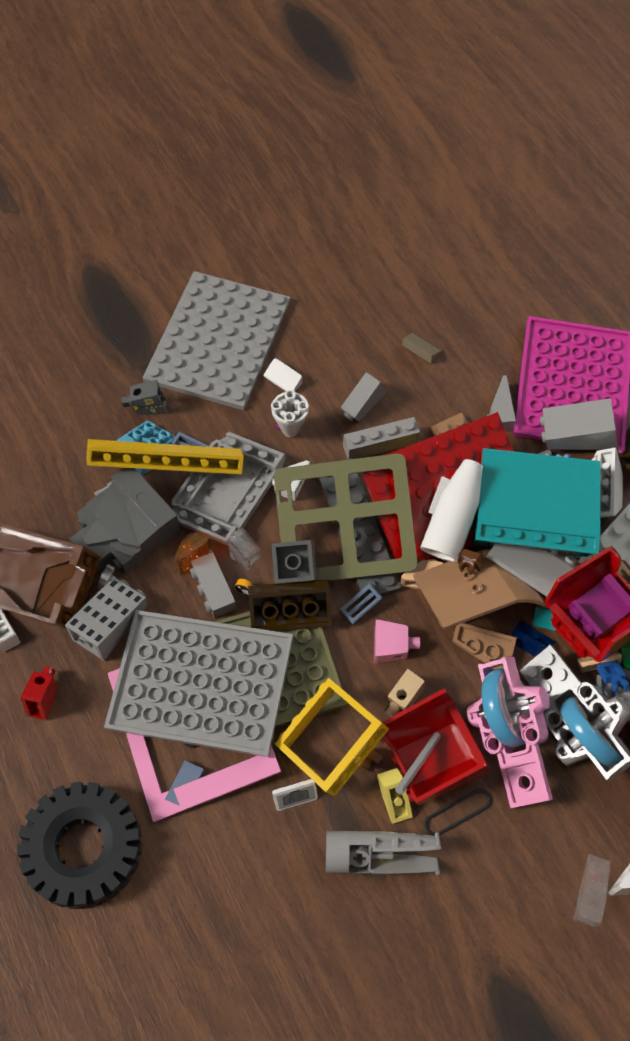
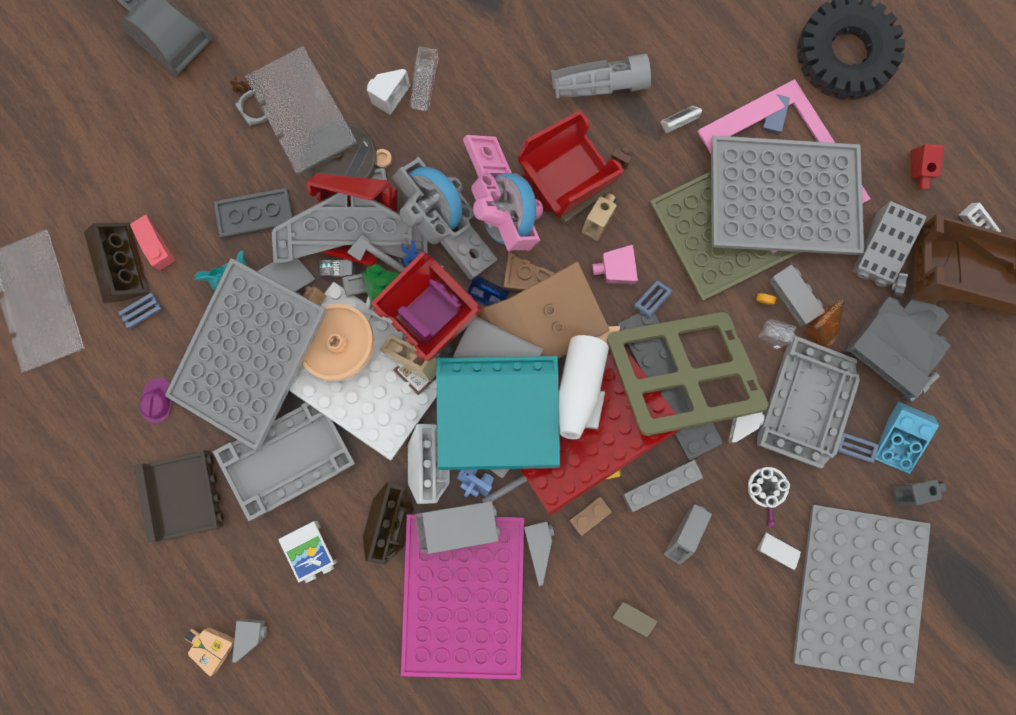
camera: 175 degrees right, 20 degrees up
(164, 456) = (885, 409): yellow brick -> none
(290, 605) = (721, 280): dark brown slope -> none
(294, 561) = (726, 321): dark grey brick -> none
(355, 755) = (641, 179): yellow window -> none
(396, 804) = (599, 131): light yellow slope -> none
(406, 780) = (581, 150): light grey bar -> none
(454, 803) = (555, 108): black piece -> none
(470, 560) = (557, 340): reddish brown tile -> none

